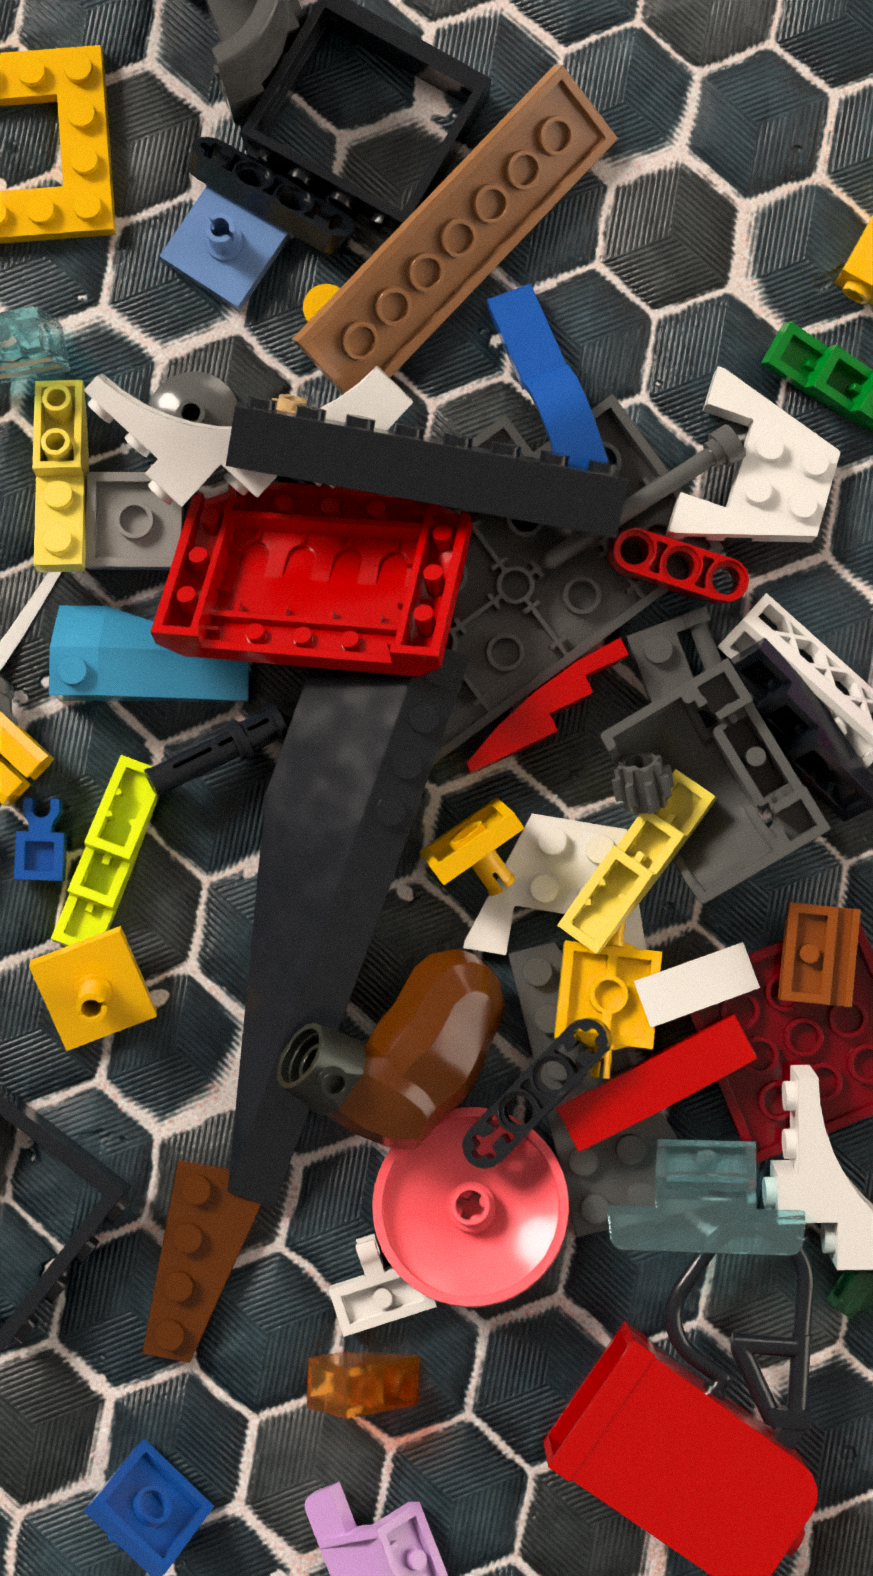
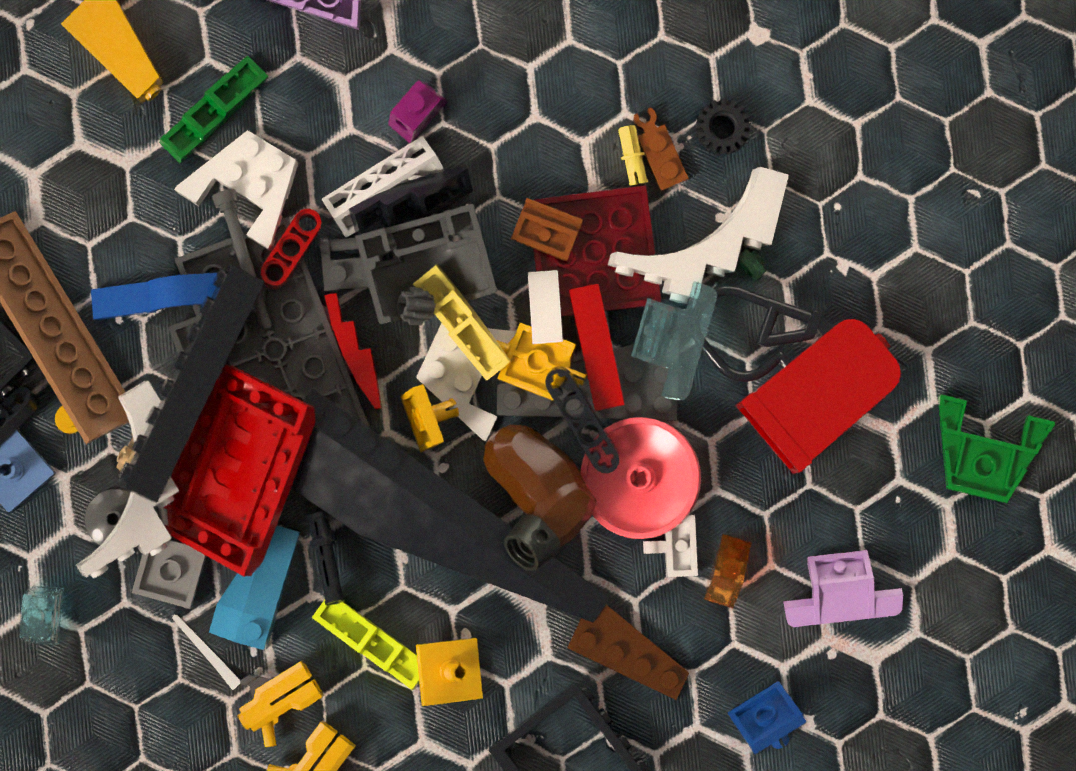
camera: 85 degrees left, 0 degrees up
(41, 851) = (356, 682): blue plate -> none
(61, 475) = (129, 609): light yellow slope -> none

